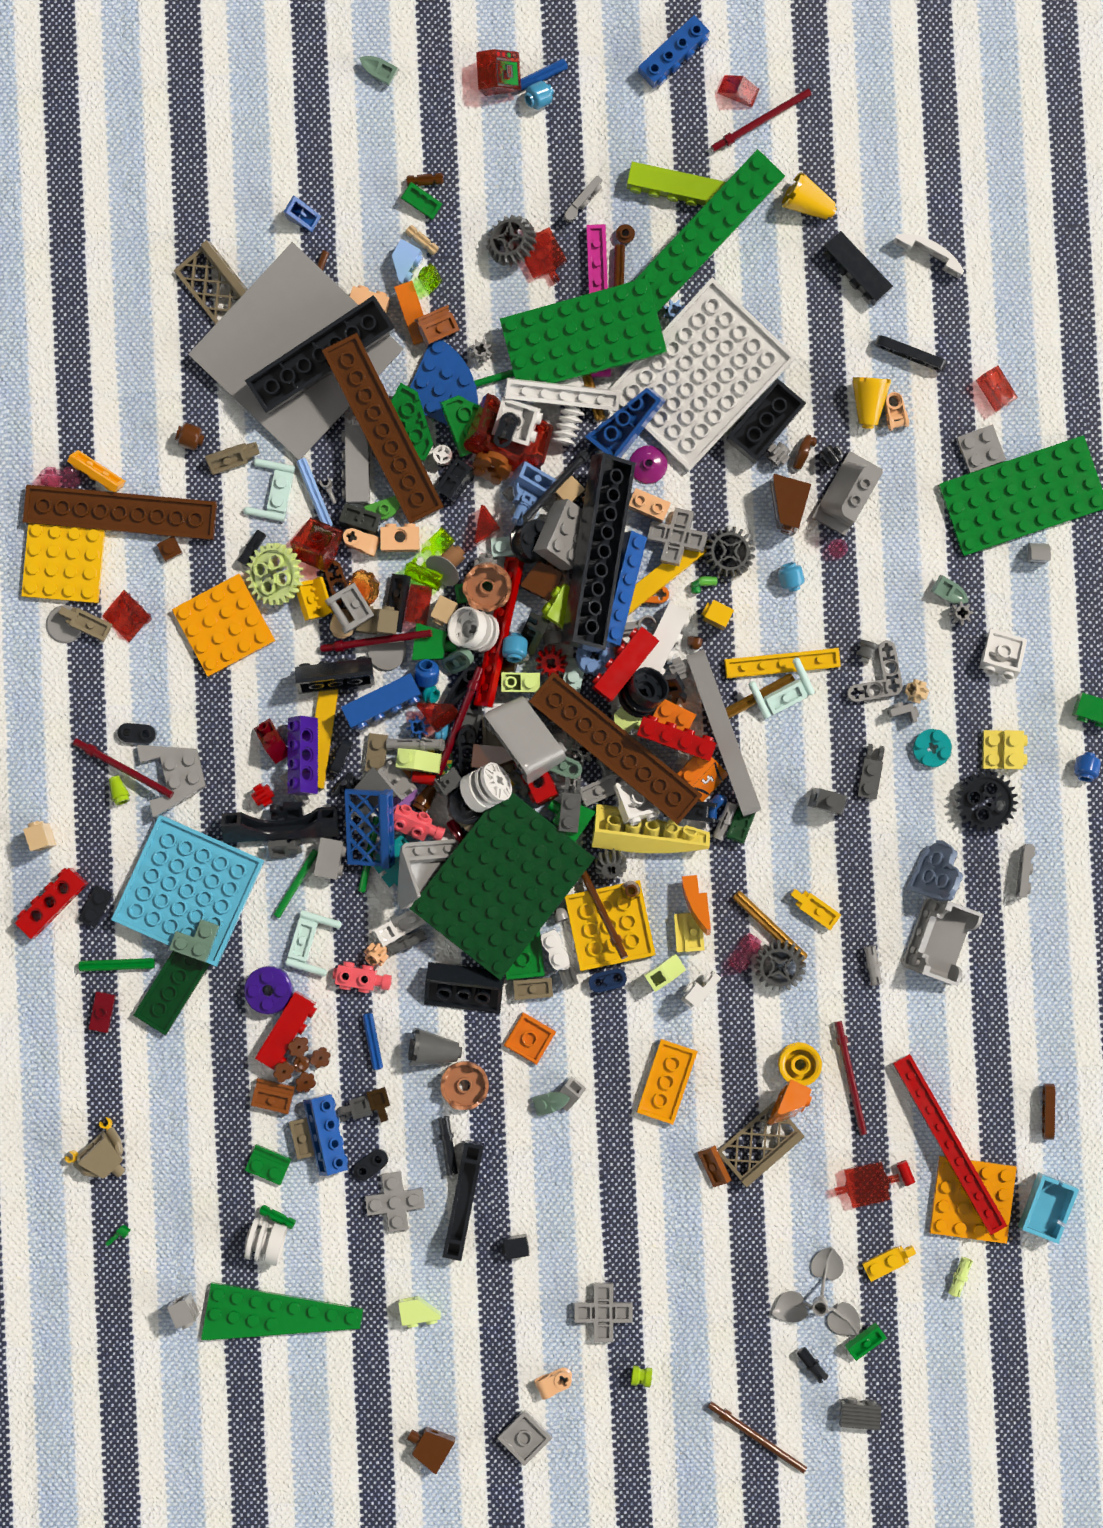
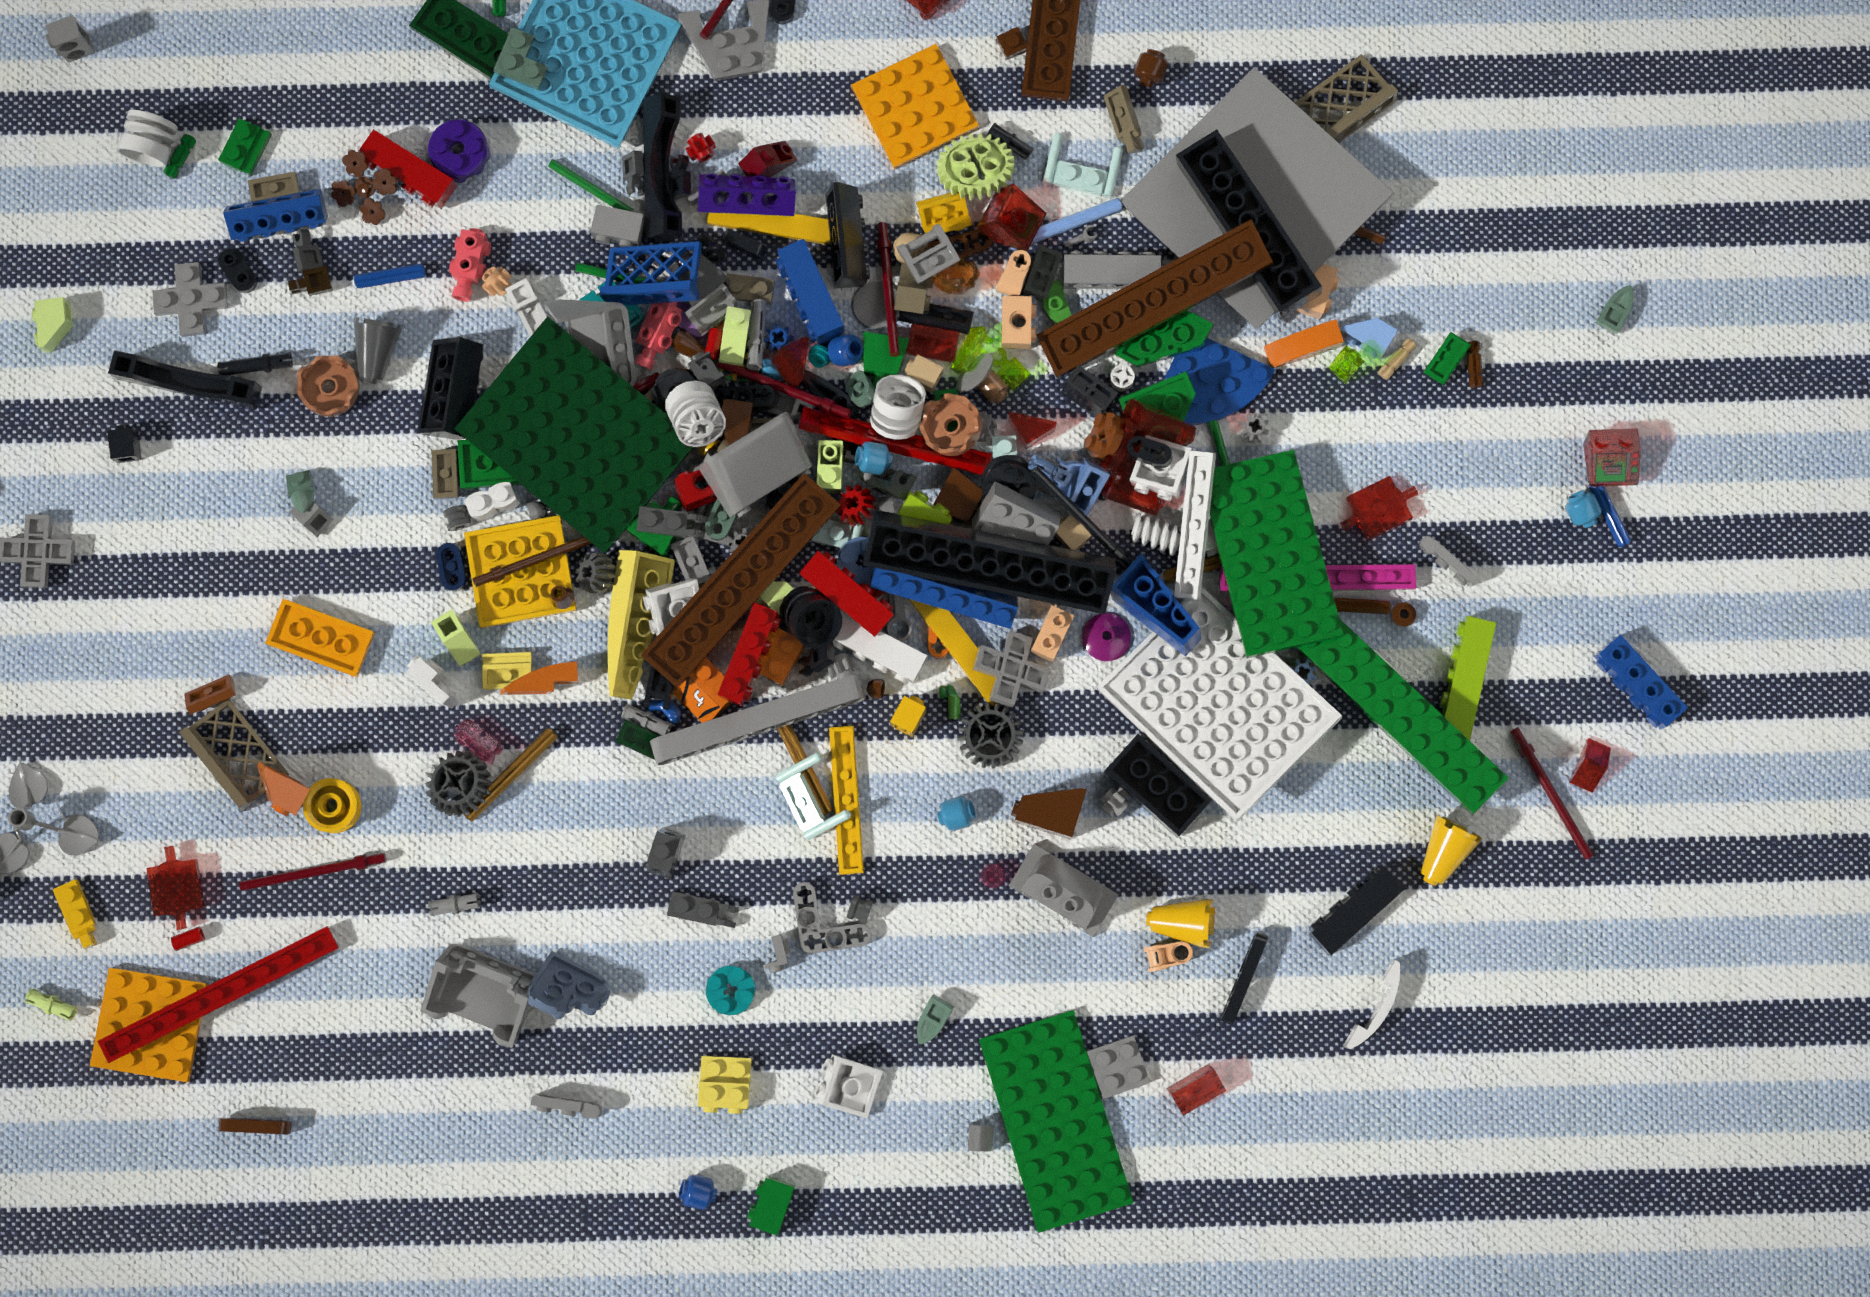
camera: 90 degrees right, 5 degrees down
(253, 1313) = (64, 127): green wing -> none
(273, 1096) = (327, 153): dark orange plate -> none
(301, 214) = (1430, 209): blue slope -> none
(303, 941) = (517, 194): light aqua plate -> none
(407, 941) = (511, 320): dark grey pin -> none
(437, 325) = (1287, 373): dark orange plate -> none
(507, 235) = (1390, 472): dark grey gear -> none
(529, 1038) = (383, 469): orange tile -> none
(803, 451) = (1119, 834): reddish brown arm -> none
(816, 908) = (529, 833): yellow hinge -> none
(830, 456) = (1111, 868): black gear -> none
(917, 691) = (803, 971): tan gear -> none
(958, 617) = (898, 1038): light grey gear -> none
(994, 817) = (678, 1047): black gear -> none
(1048, 1203) = (132, 1117): medium azure piece -> none

